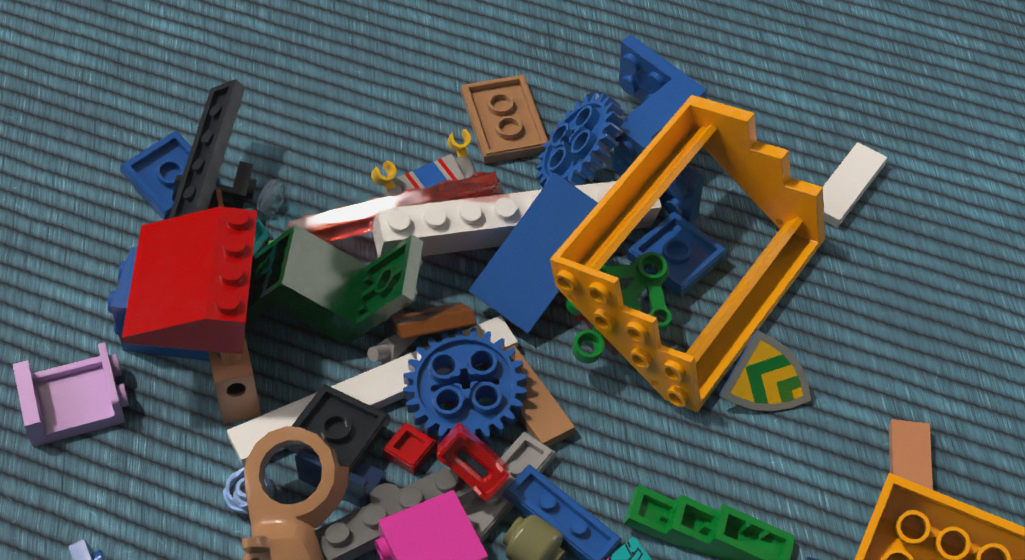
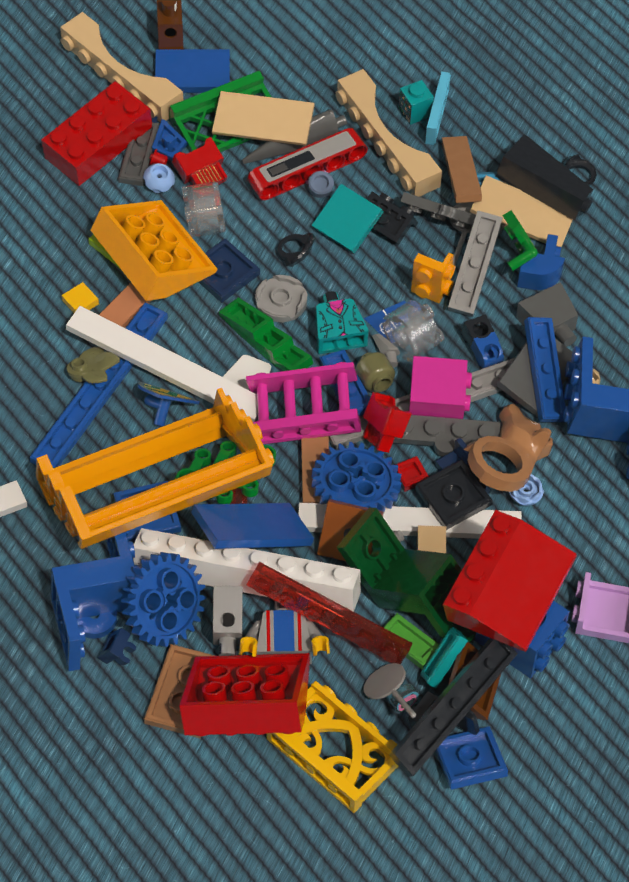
camera: 150 degrees left, 5 degrees up
(295, 192) = (386, 682): none -> light grey piece
(329, 357) = (431, 538): none -> tan brick
(333, 151) = (347, 721): none -> yellow fence
(426, 97) = (246, 694): none -> red slope
(509, 162) = (227, 618): none -> light grey torso
(589, 411) = (305, 426): none -> dark pink fence
(694, 477) = (246, 367): none -> white sticker
(798, 423) = (158, 360): none -> white tile
(851, 377) = (93, 396): none -> blue tile
(876, 383) = (92, 365): none -> olive plate
(972, 465) = (80, 296): none -> yellow tile

